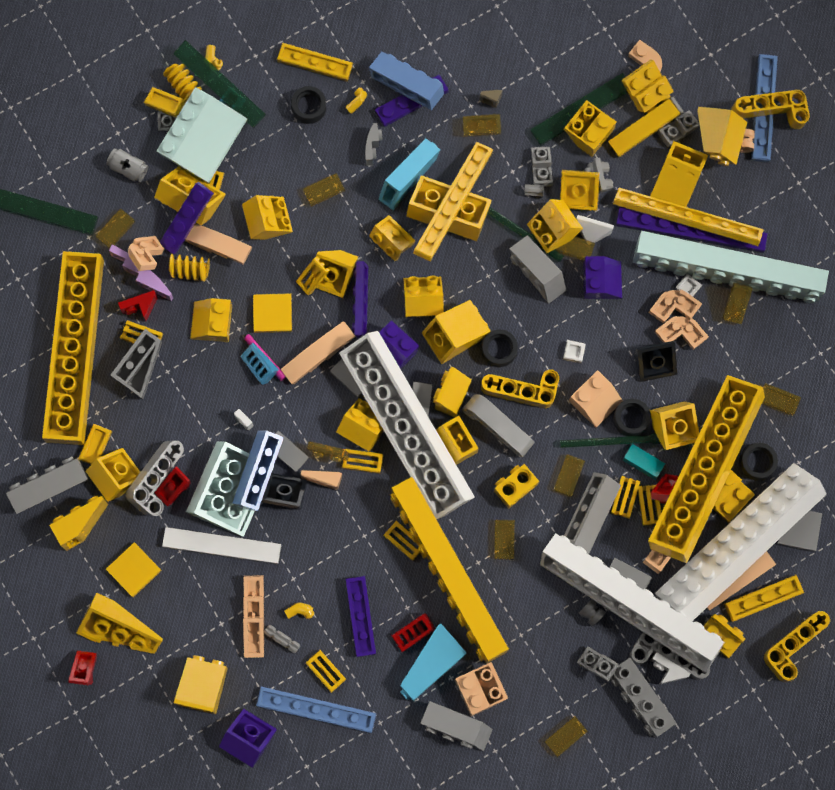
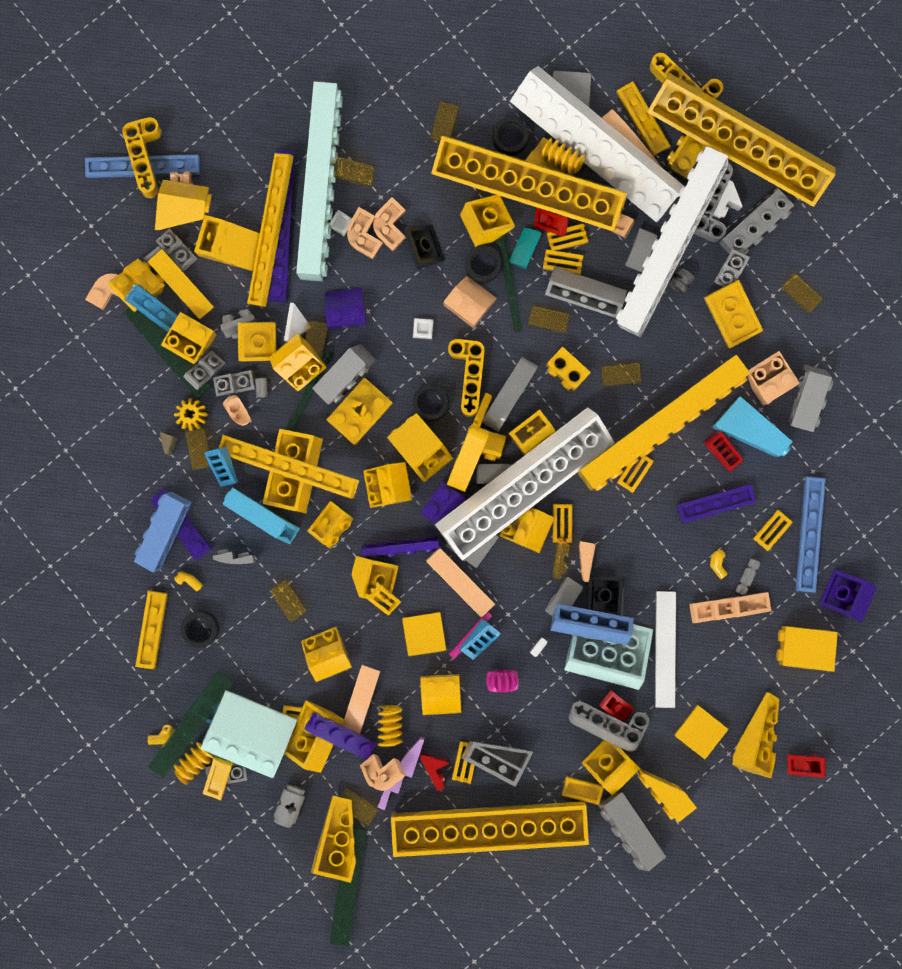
camera: 90 degrees left, 10 degrees up
(82, 202) = (336, 845): none -> yellow wedge
(215, 379) = (502, 680): none -> dark pink gear
(434, 367) = (468, 457): none -> yellow beam
(468, 141) = (224, 457): none -> dark azure slope
(477, 388) = (482, 410): none -> yellow tile
(499, 280) = (359, 411): none -> yellow plate
(515, 164) = (236, 410): none -> light nougat hair
(517, 115) = (194, 407): none -> yellow gear
(552, 661) = (733, 314): none -> yellow tile
(558, 139) = (204, 370): none -> light grey slope
(624, 95) = (151, 307): none -> dark azure tile
(730, 504) = (562, 157): none -> yellow piece
(730, 689) = (741, 140): none -> yellow brick

